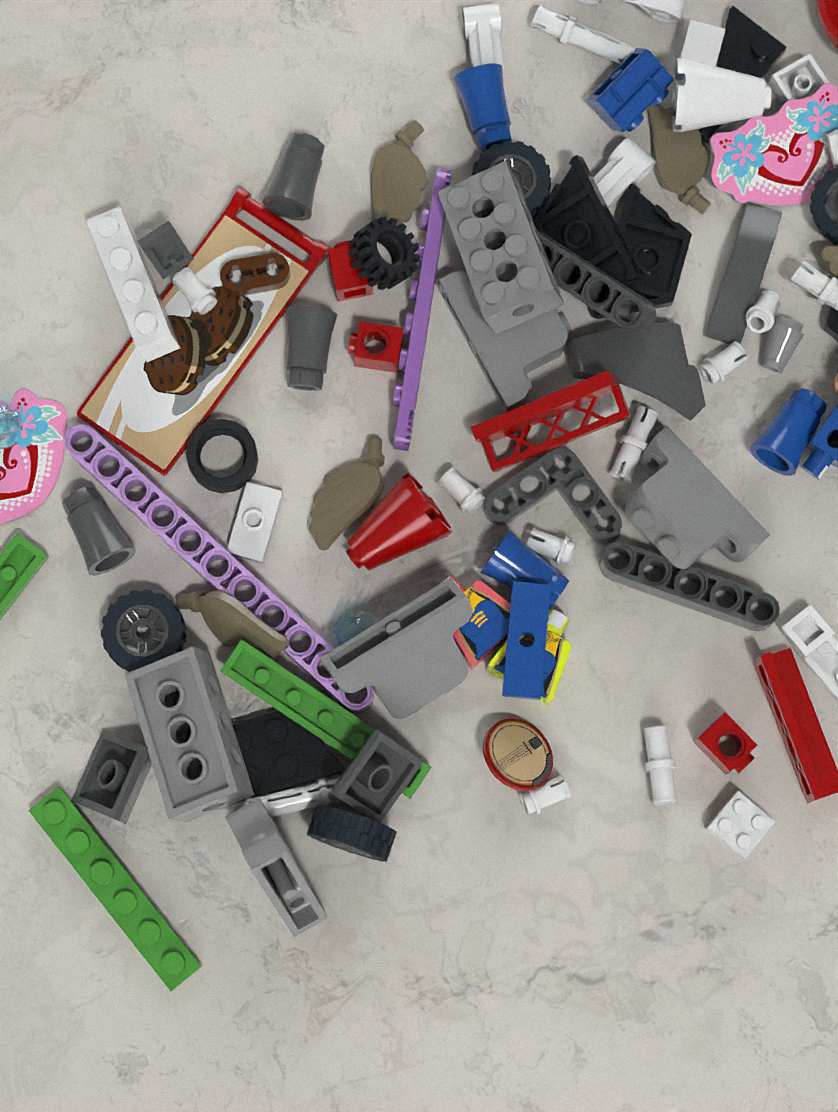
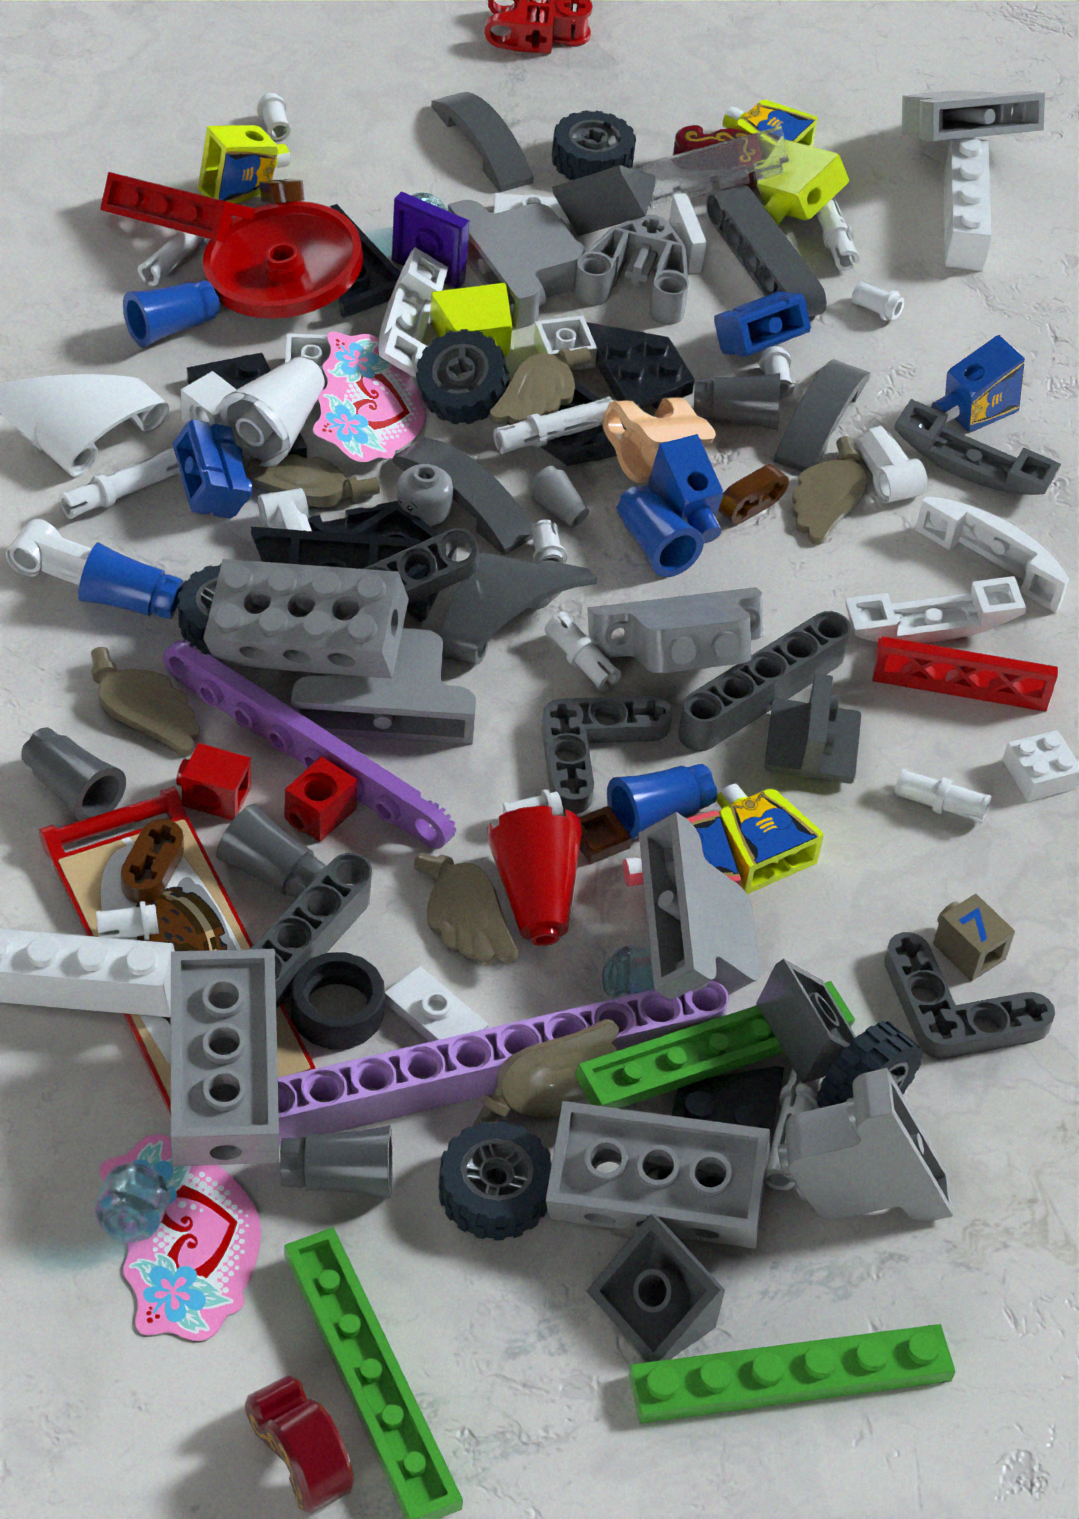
camera: 65 degrees left, 30 degrees down
(74, 409) = (224, 1058): none -> light grey brick
(166, 250) = (66, 906): dark grey bracket -> none
(221, 393) = (316, 935): none -> dark grey beam
(371, 262) = (227, 727): black tyre -> none
(461, 869) = (959, 1019): none -> dark grey beam
(474, 545) = (602, 835): none -> reddish brown tile
(518, 754) = (861, 901): piece -> none
(527, 617) = (748, 811): blue tile -> none
(536, 845) = (973, 936): none -> dark tan brick
(544, 795) = (918, 911): white pin -> none
(545, 408) = (500, 686): red fence -> none
(551, 546) = (655, 759): white pin -> none
(657, 648) = (814, 736): none -> dark grey bracket
(708, 249) = (426, 493): none -> light grey head
(709, 744) = (951, 731): red brick -> none
(761, 316) = (524, 489): white pin -> none

